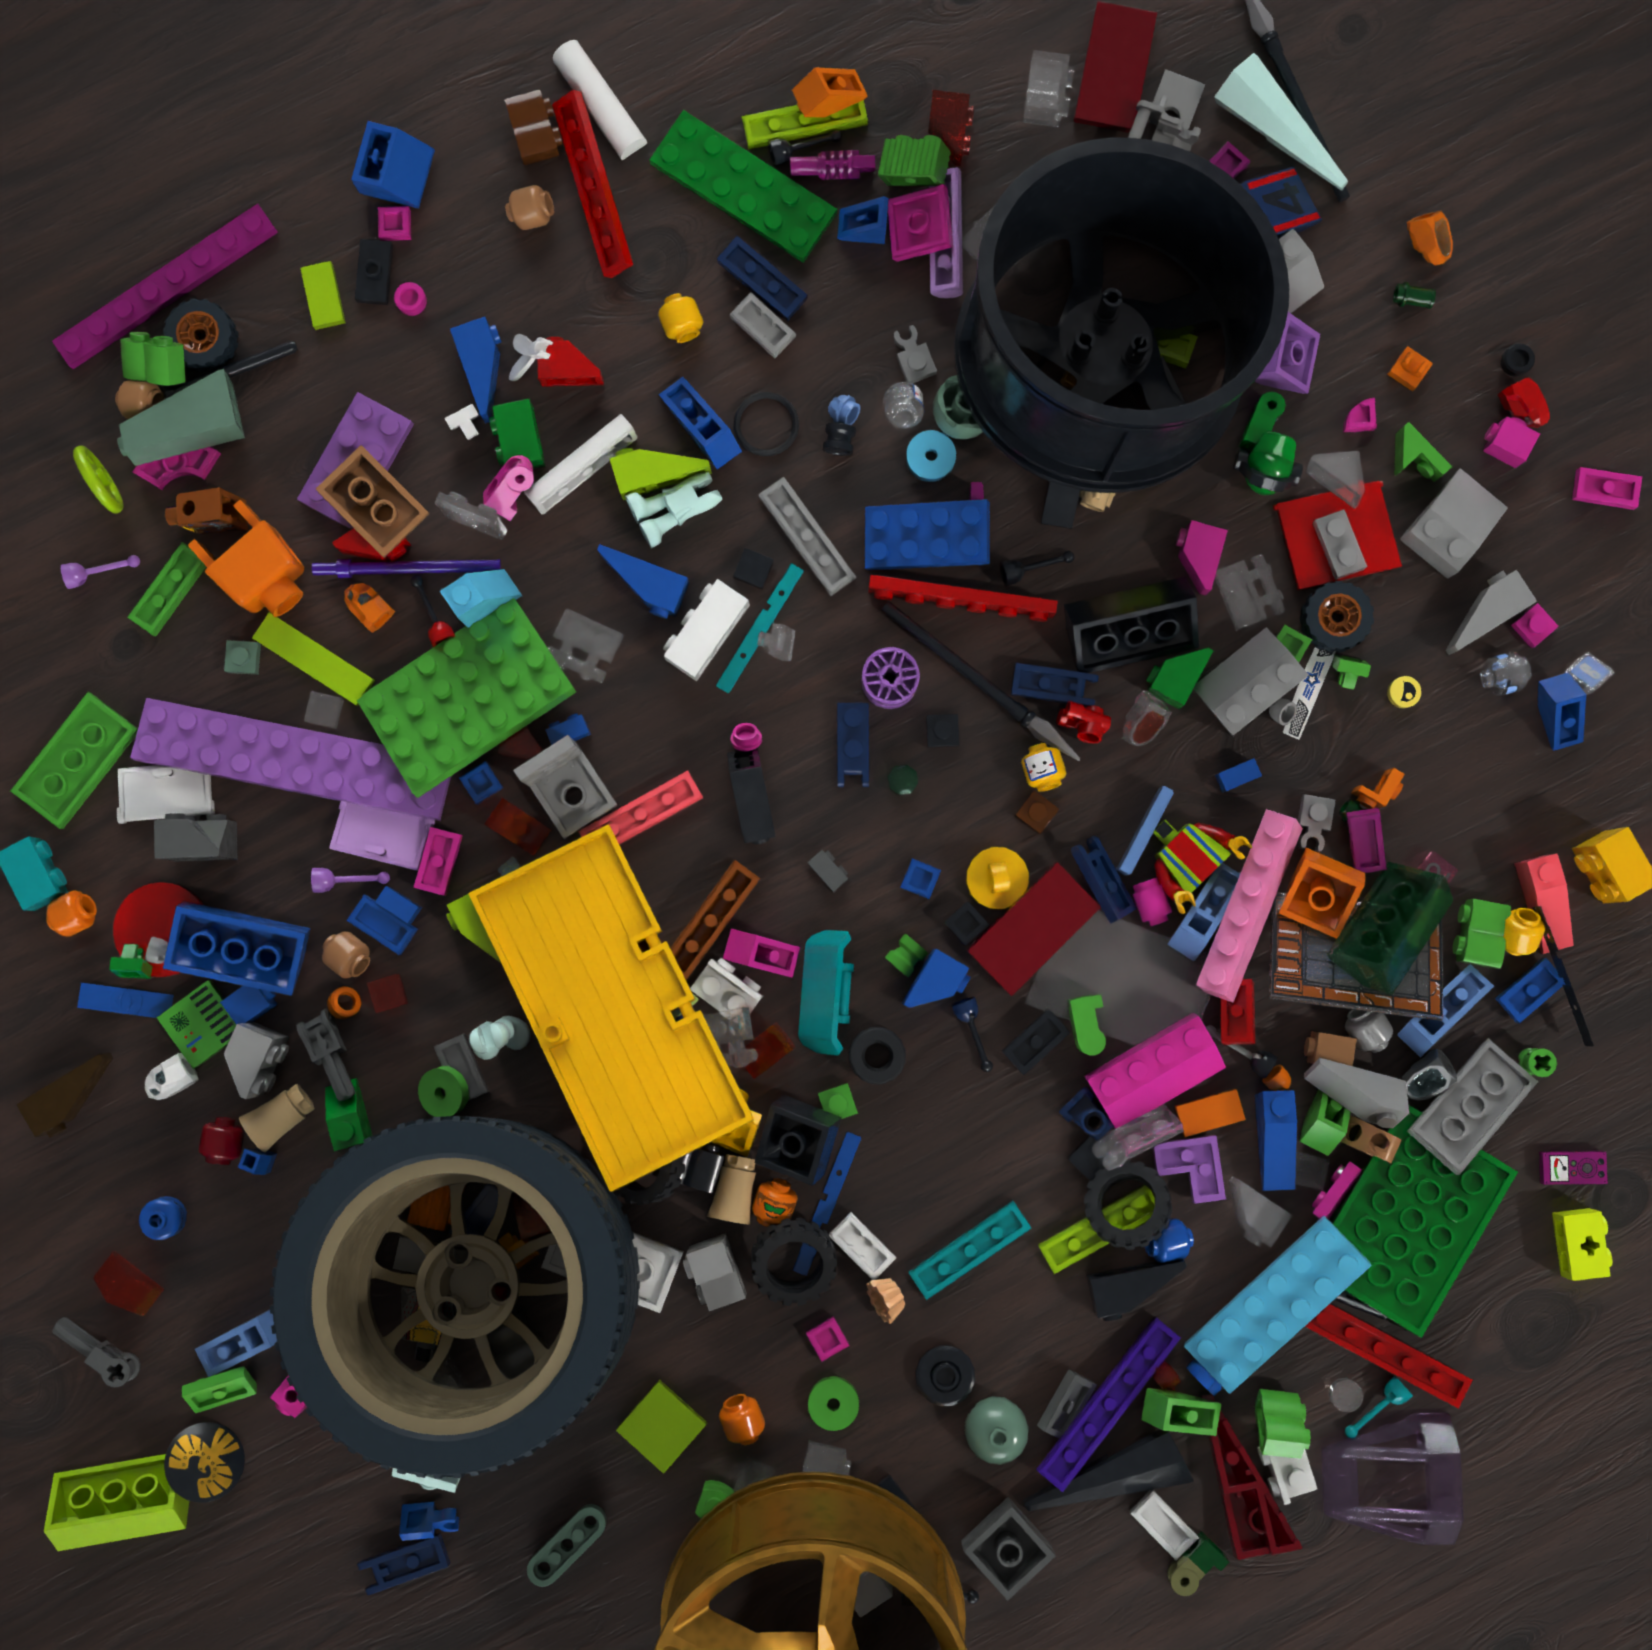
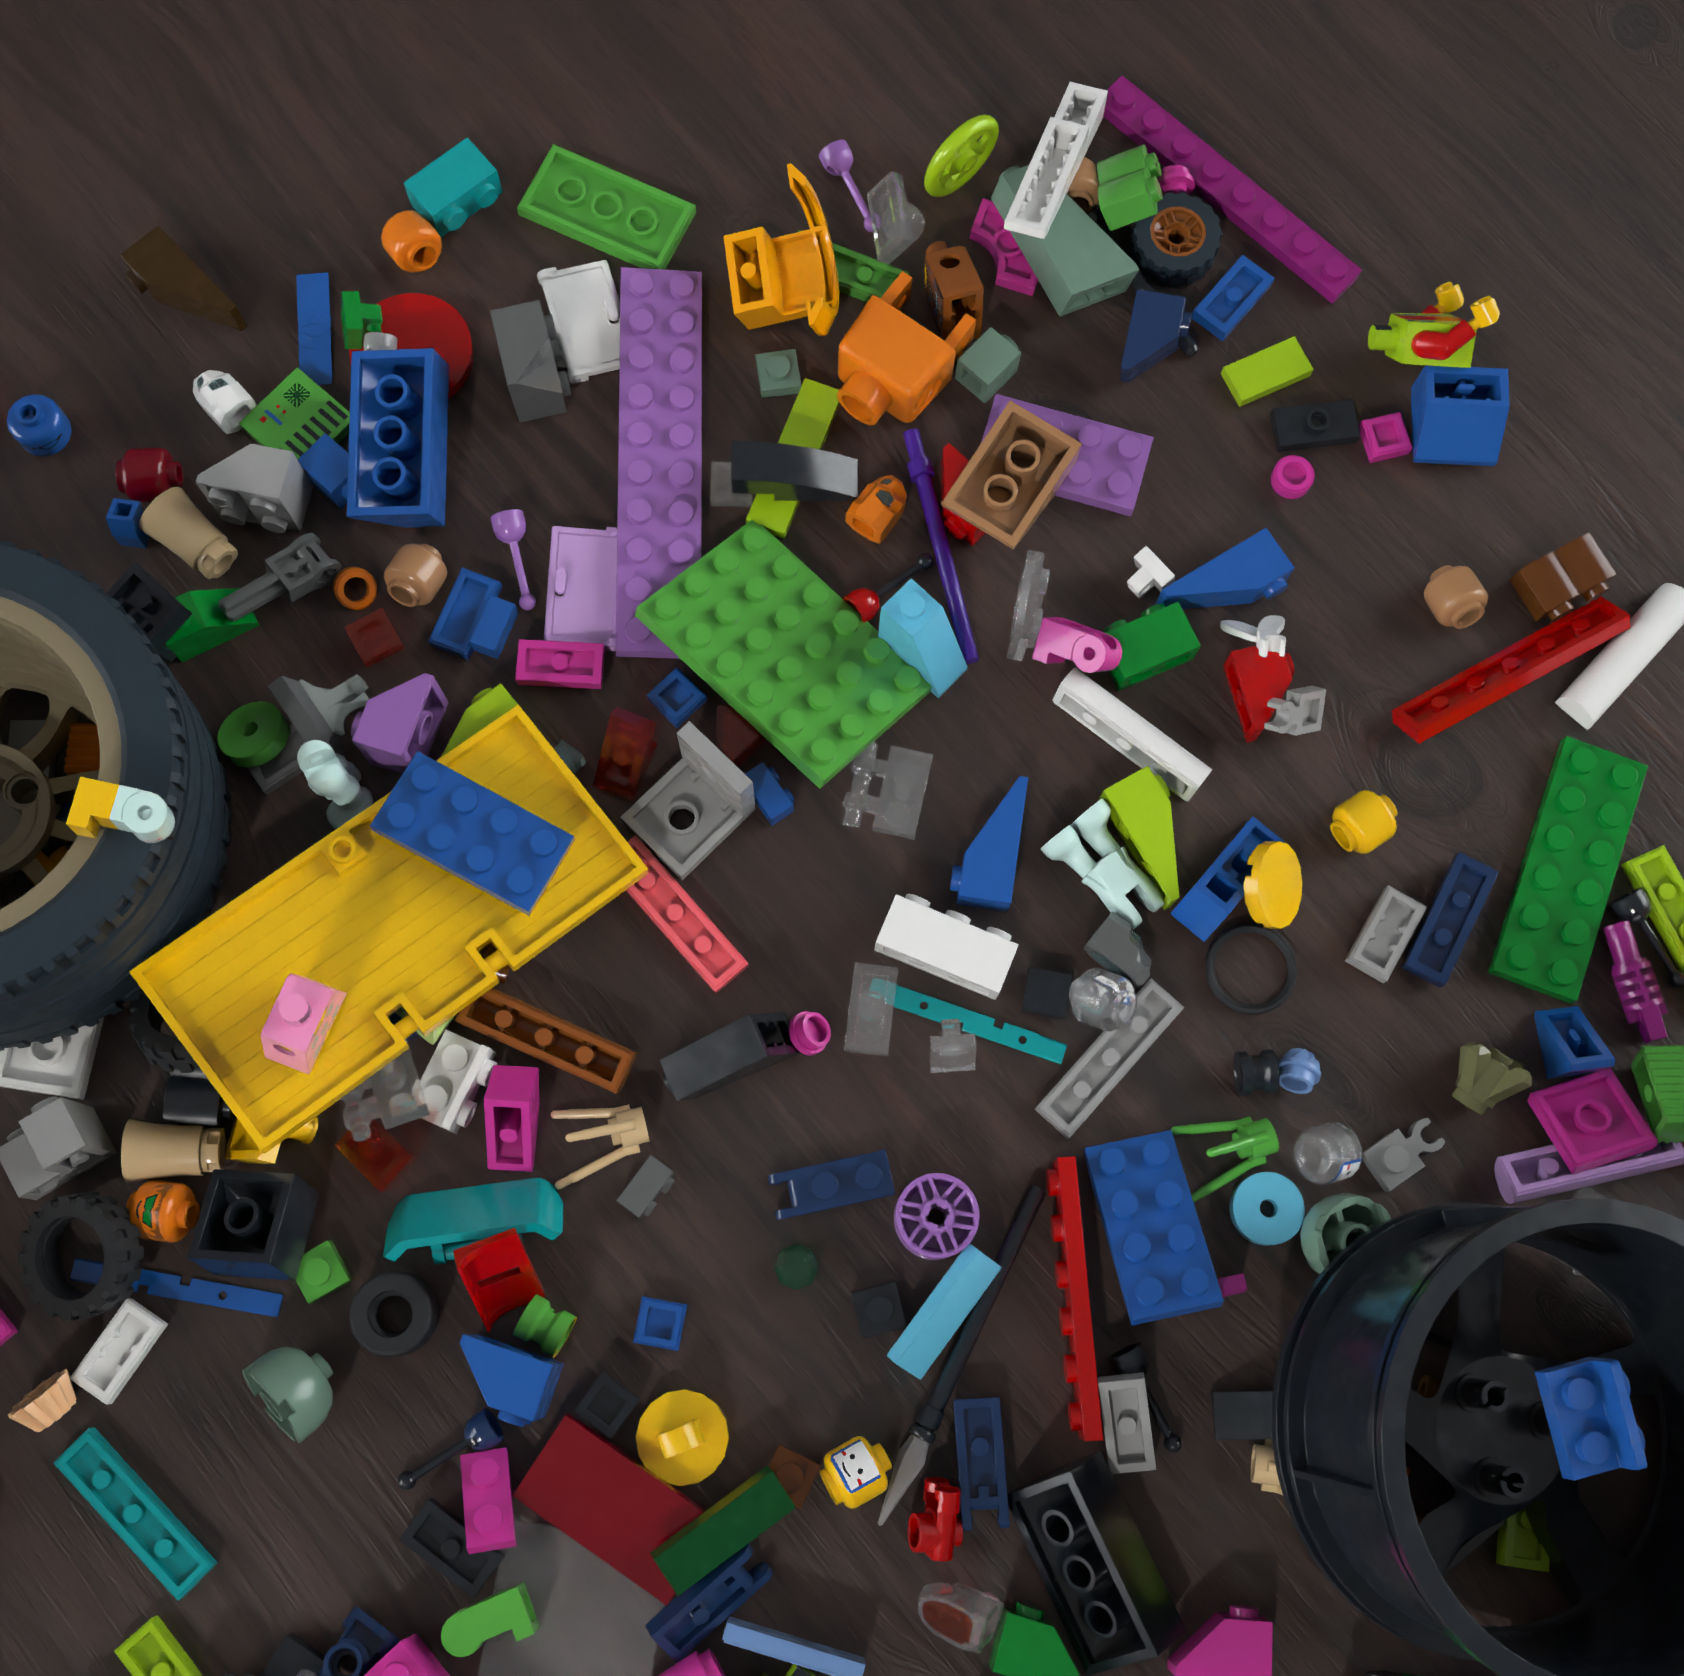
camera: 75 degrees right, 10 degrees down
(123, 407) = (1056, 160): none -> white slope
(136, 543) = (892, 218): none -> clear tile
(153, 322) = (1176, 180): none -> dark pink plate
(165, 632) = (788, 273): none -> light orange piece
(258, 305) = (1232, 298): none -> blue plate
(272, 499) = (988, 364): none -> sand green brick
(275, 370) = (1153, 331): none -> dark blue slope
(327, 166) = (1433, 336): none -> torso
(329, 661) = (792, 472): none -> black slope
(330, 1146) = (151, 607): none -> black bracket
(438, 1039) = (320, 711): none -> piece
(464, 983) = (400, 723): none -> medium lavender slope
(510, 1157) = (119, 808): none -> leg
(558, 940) = (472, 833): none -> blue plate
(592, 342) = (1299, 712): none -> light grey plate
(673, 1075) = (300, 1022): none -> bright pink torso
(714, 392) = (1274, 885): none -> yellow tile
(735, 510) = (1120, 950): none -> dark grey rock
(738, 692) = (871, 1009): none -> clear tile
(767, 530) = (1103, 999): none -> clear head
(785, 876) = (625, 1126): none -> tan plant
(866, 979) = (506, 1290): none -> red piece
(876, 283) = (1488, 1077): none -> olive rock
(885, 454) = (1251, 1140): none -> bright green plant
(913, 1130) = (292, 1389): none -> sand green cylinder
(953, 686) = (944, 1311): none -> medium azure tile
(1011, 1012) = (488, 1500): none -> dark pink plate
(1049, 583) = (1126, 1423): none -> light grey plate
(1062, 860) = (722, 1530): none -> dark green tile
(1113, 285) = (1591, 1417): none -> blue bracket

